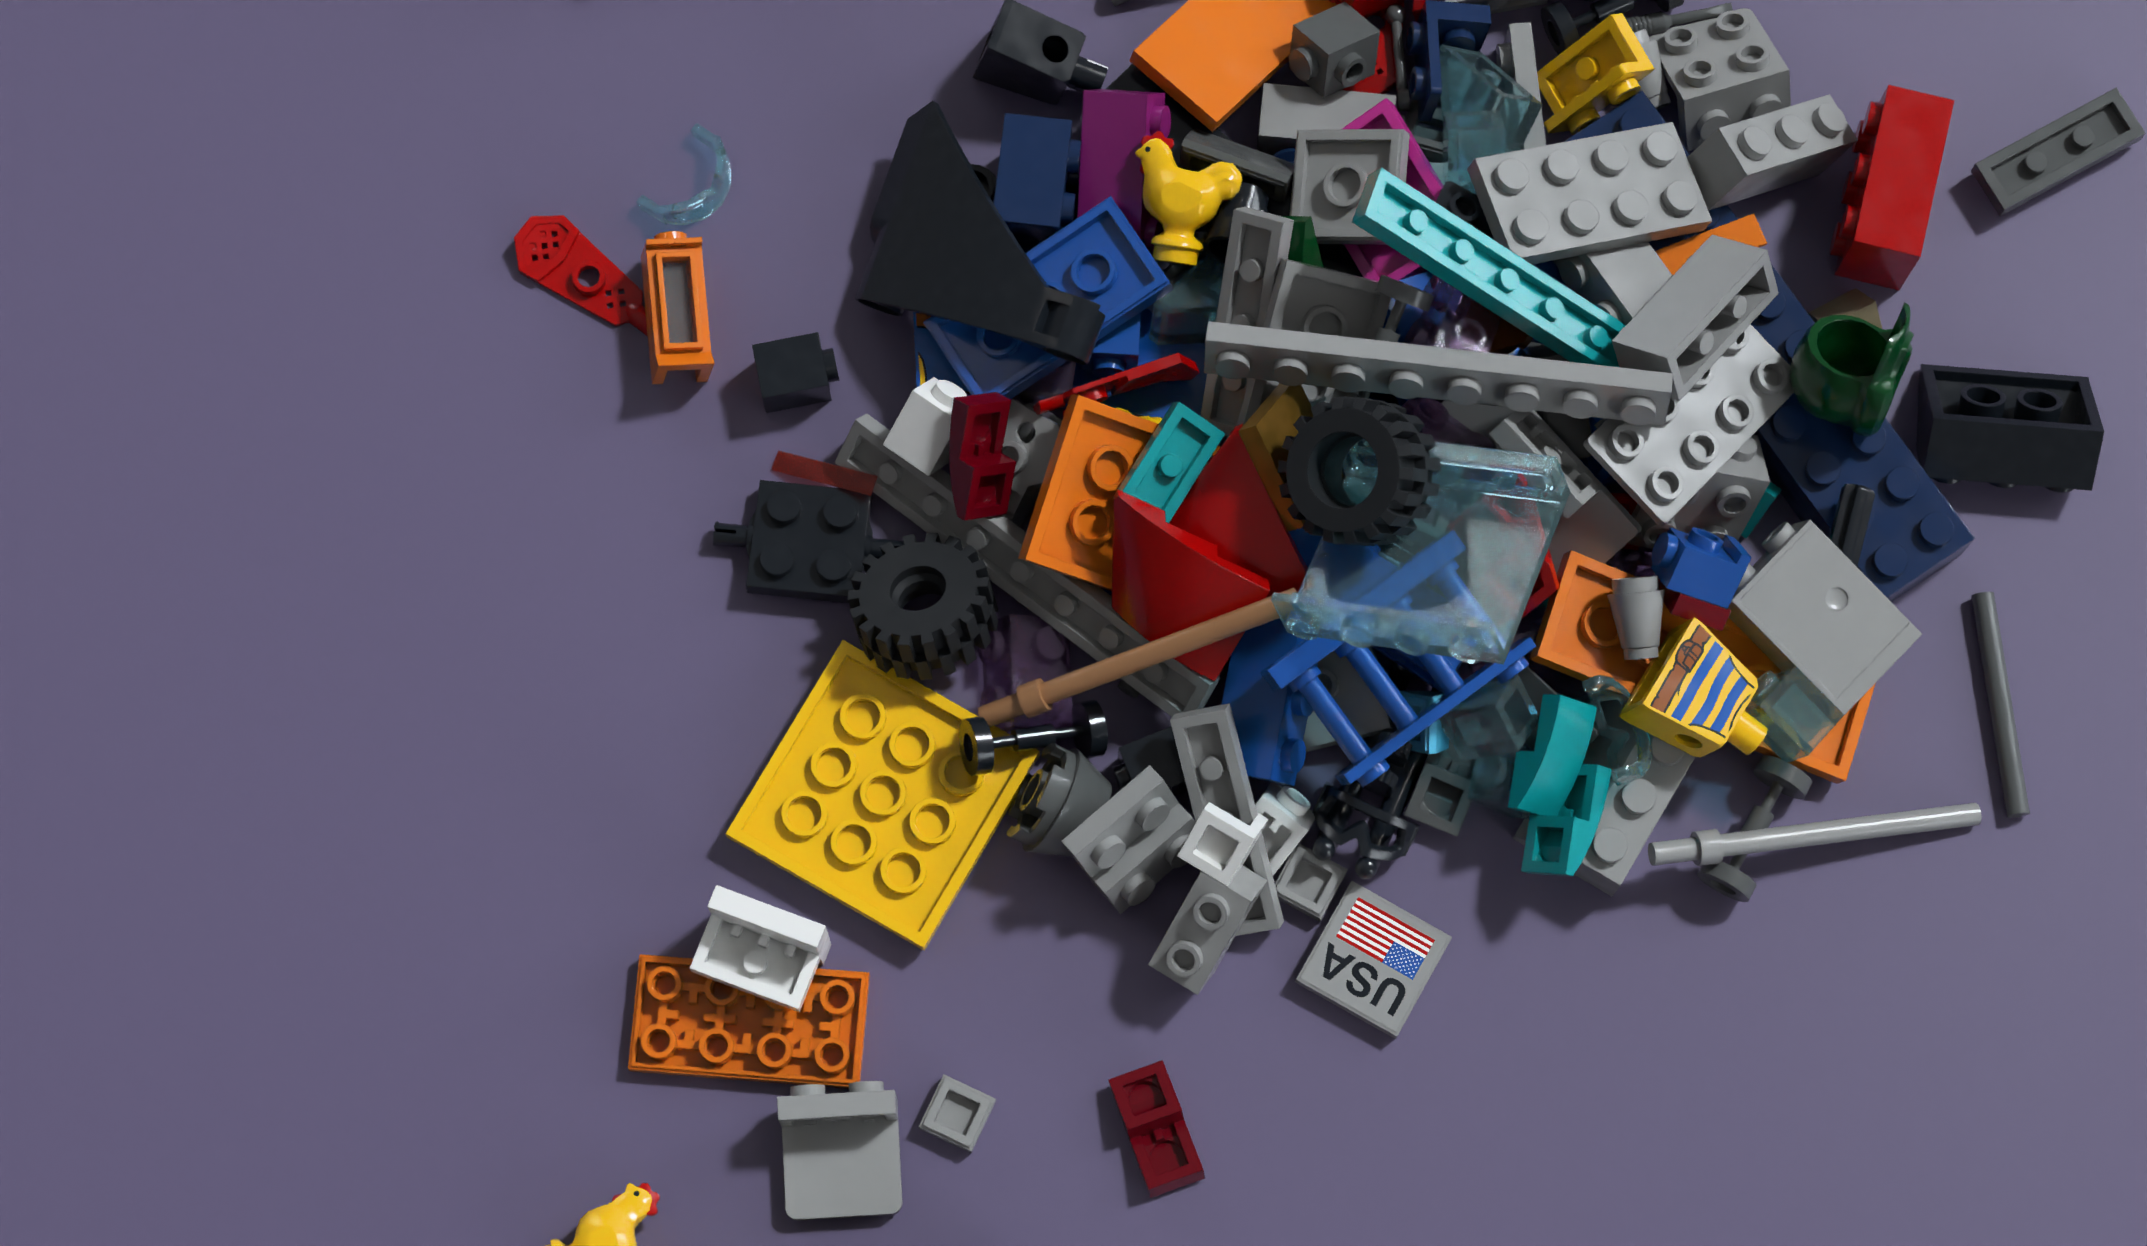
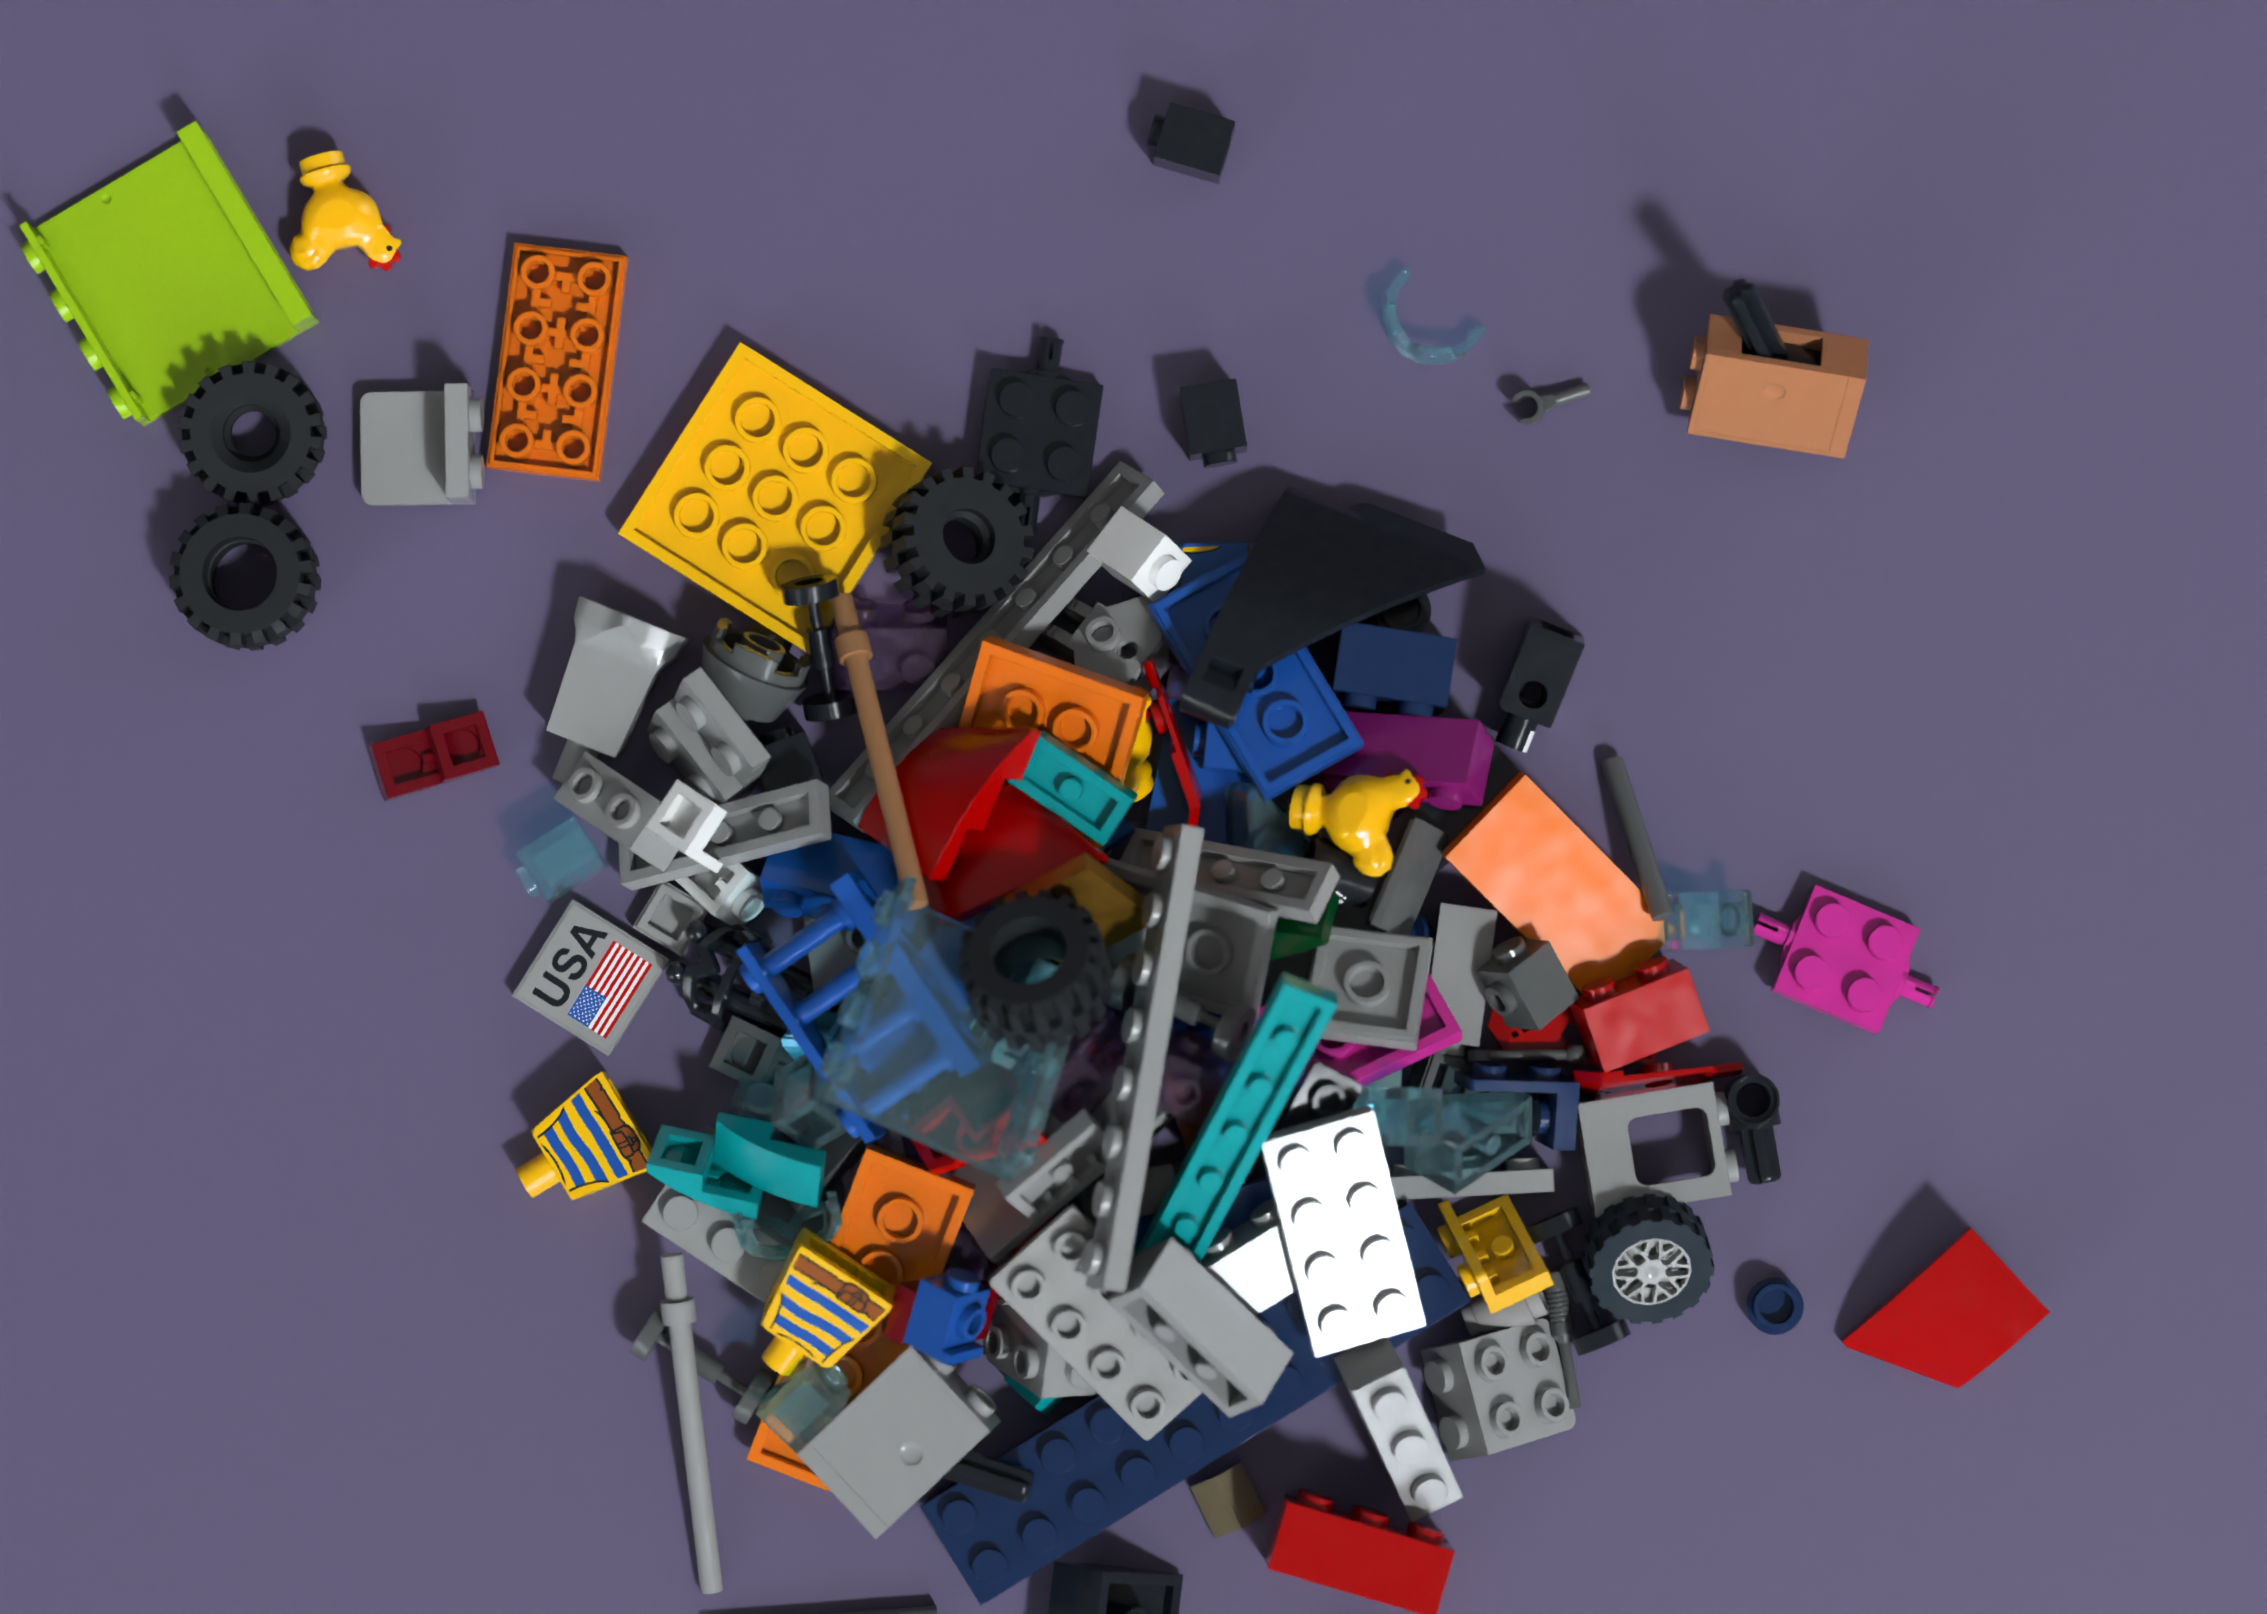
camera: 90 degrees right, 10 degrees up
(517, 402) = (1191, 142): none -> black brick
(568, 261) = (1343, 195): red piece -> none
(676, 306) = (1285, 304): orange window -> none
(760, 949) = (617, 372): white bracket -> none
(764, 63) = (1550, 400): none -> dark grey hand
(824, 473) = (1109, 450): clear red piece -> none
(957, 1113) = (458, 562): light grey tile -> none
(978, 468) = (1094, 598): dark red slope -> none
(1076, 951) = (608, 681): none -> light grey piece
(1259, 992) = (559, 861): none -> clear light blue brick
(1542, 950) = (587, 1143): none -> torso
(1637, 615) = (903, 1251): light grey cone -> none
(1741, 230) = (1300, 1372): orange window -> none
(1851, 369) = (1144, 1484): dark green piece -> none

